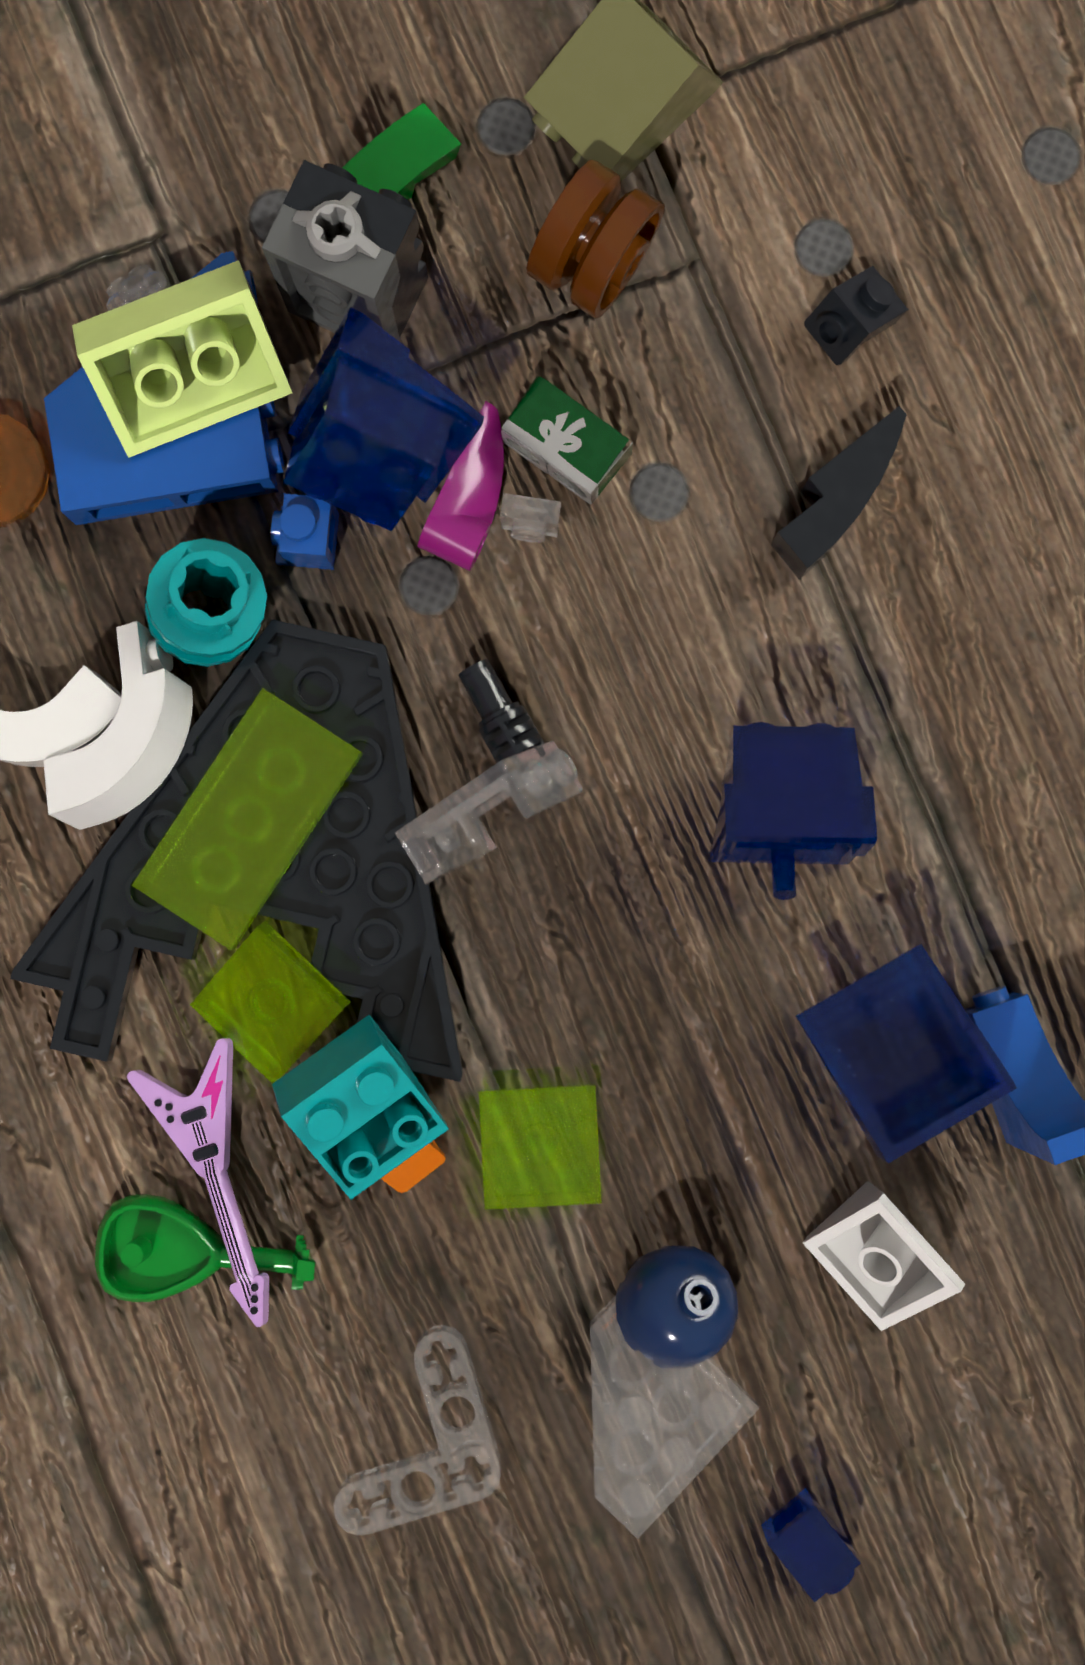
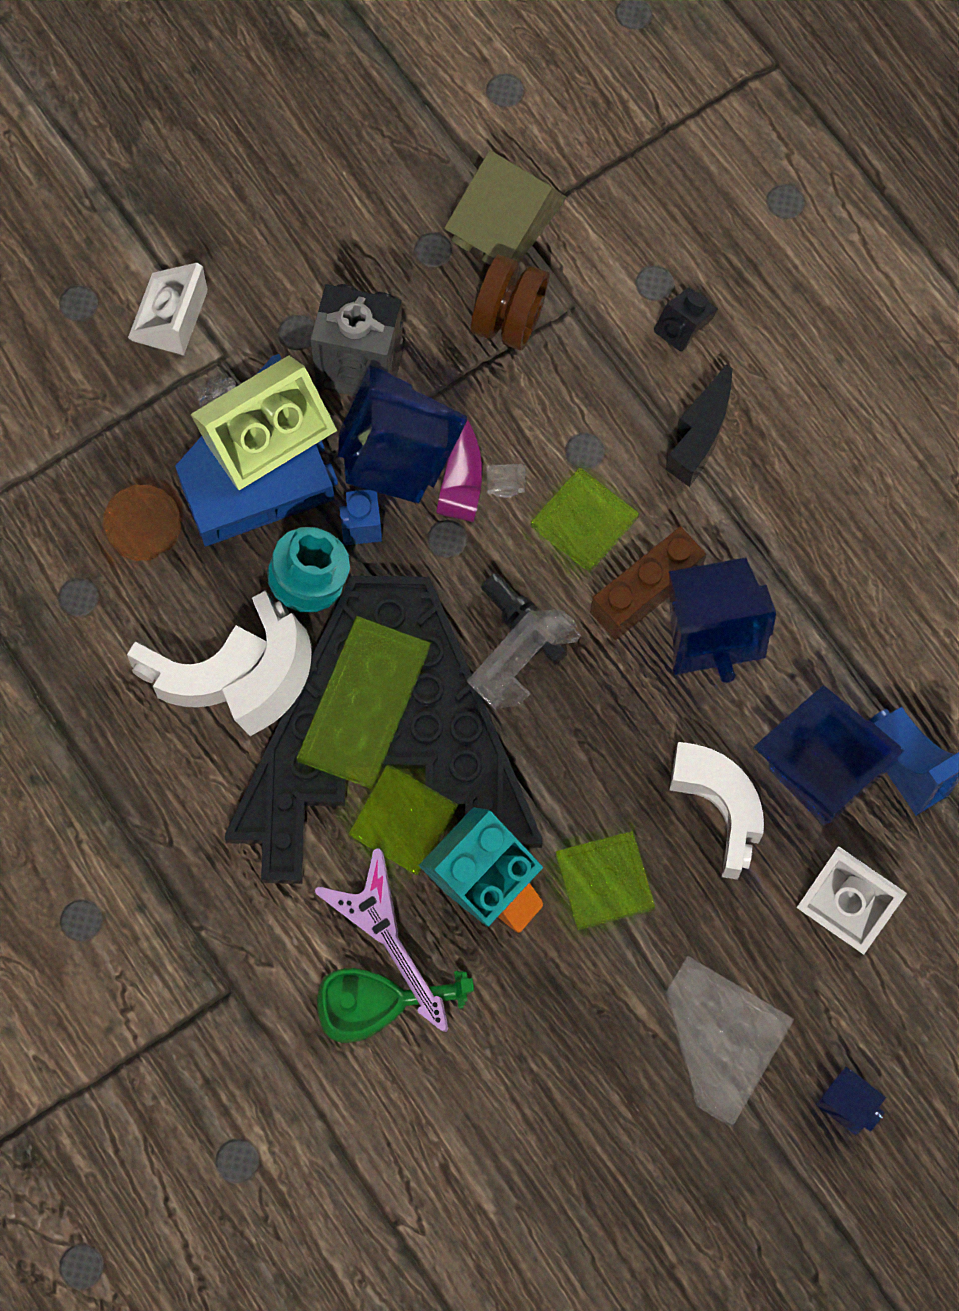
camera: 15 degrees left, 15 degrees down
(96, 144) = (170, 308): none -> white slope
(404, 153) = (377, 272): green slope -> none
(453, 1448) = (592, 1090): clear beam -> none
(565, 440) = (518, 428): piece -> none
(633, 600) = (584, 519): none -> clear neon green tile
(677, 1306) = (722, 957): dark blue cylinder -> none
(702, 720) = (644, 583): none -> reddish brown brick
(752, 1065) = (725, 784): none -> white arch

